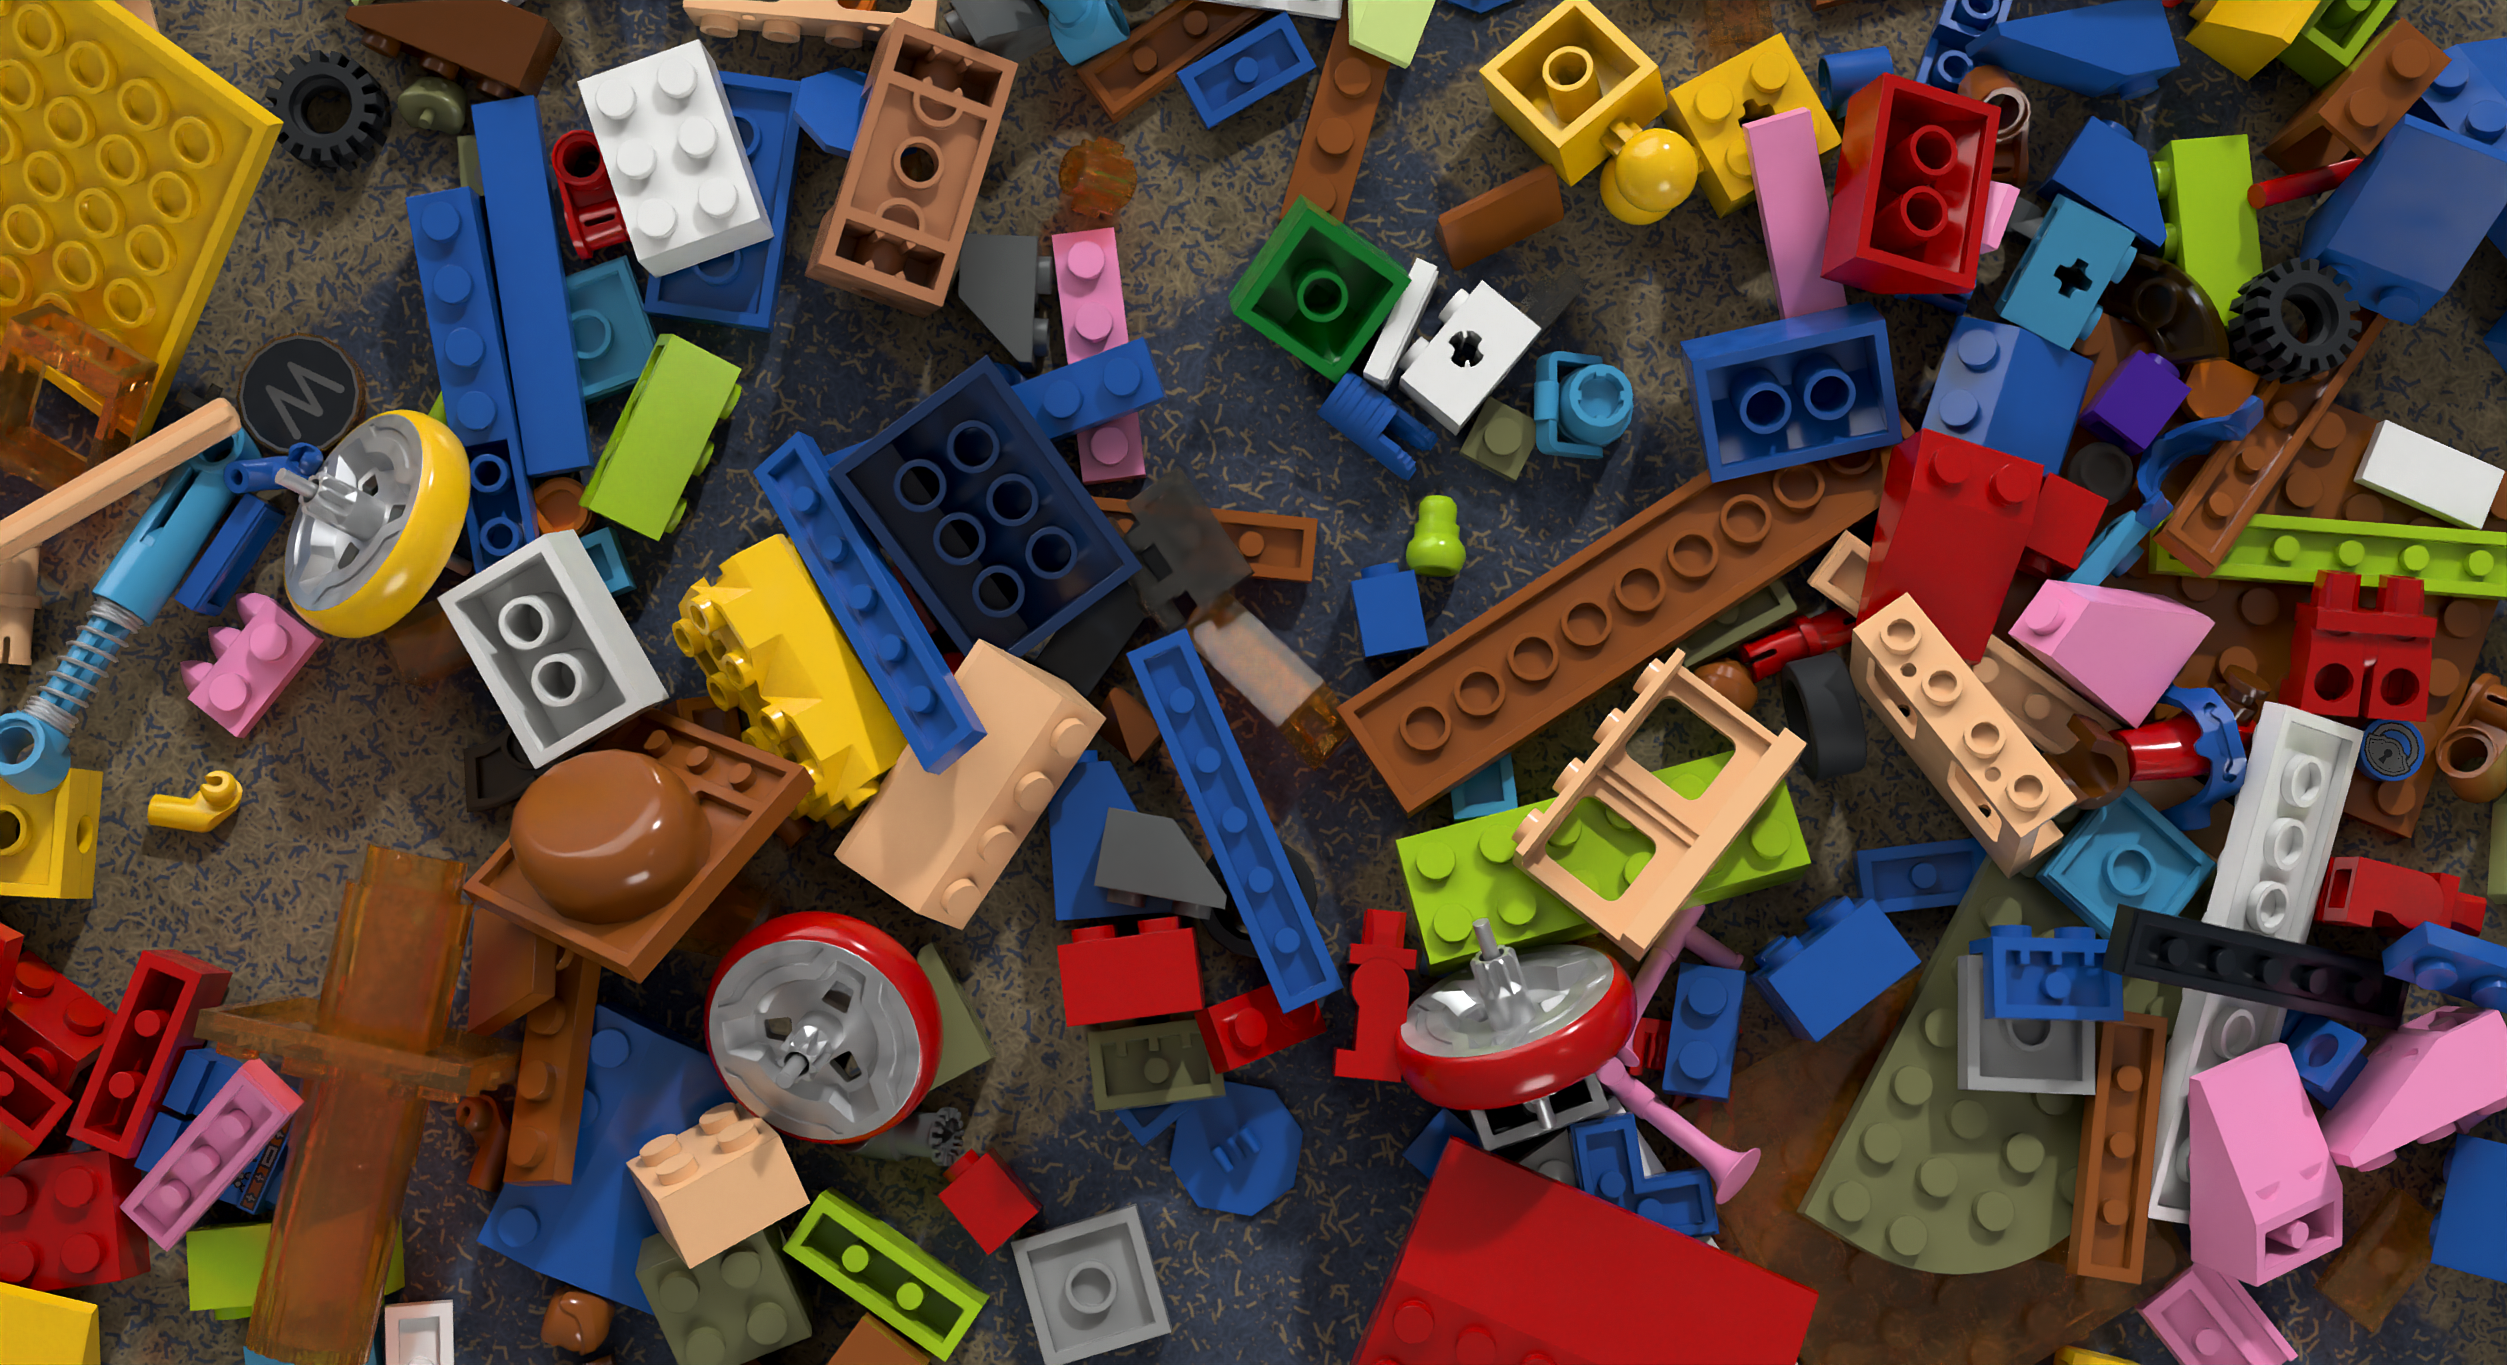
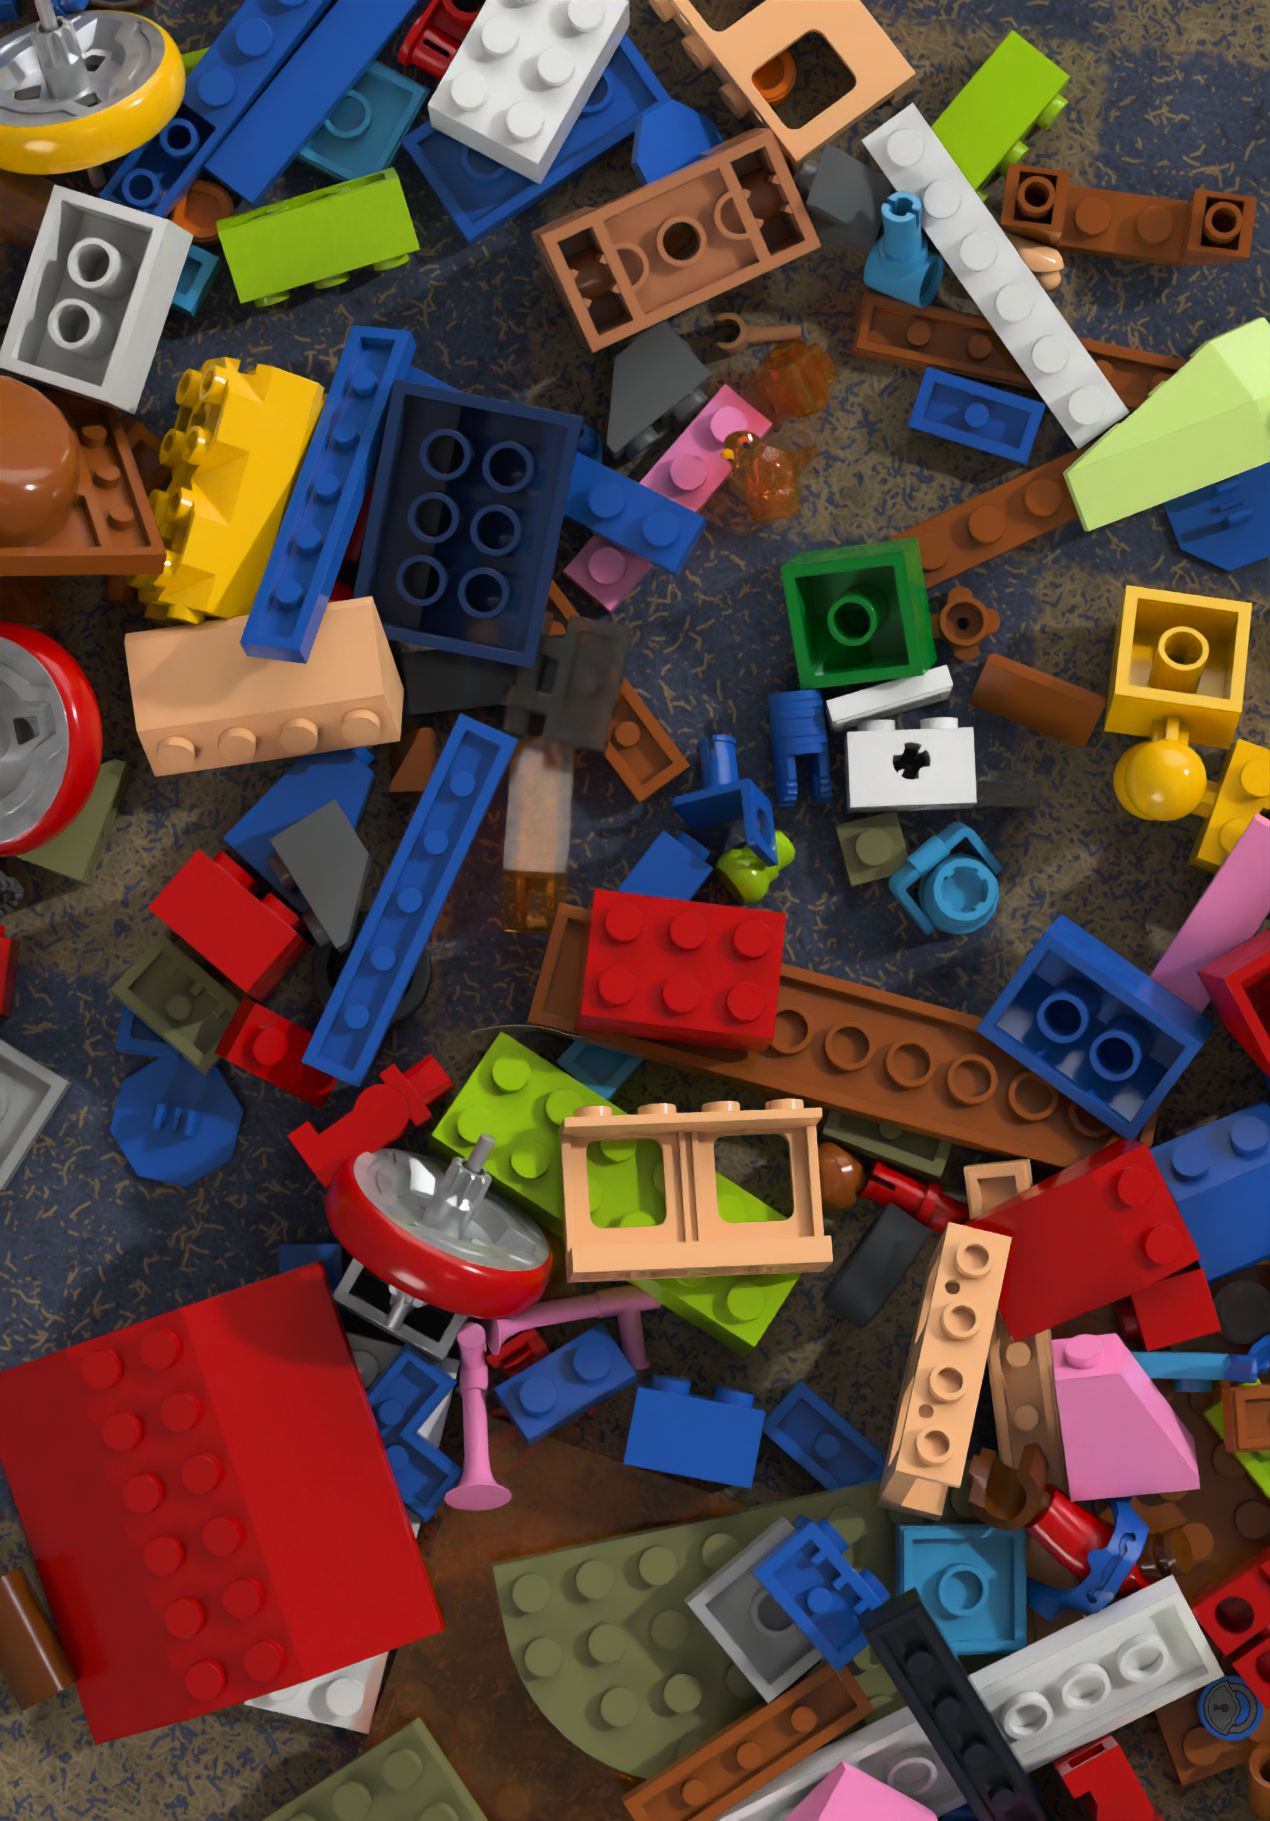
camera: 45 degrees right, 0 degrees up
(1032, 181) = (753, 333): none -> medium nougat hand
(1149, 264) = (766, 474): none -> clear orange animal
(1368, 512) = (729, 799): none -> blue bracket
(1387, 845) = (511, 1029): none -> sticker
(1404, 208) = (981, 623): none -> dark orange plate
(1475, 662) = (680, 971): none -> red brick

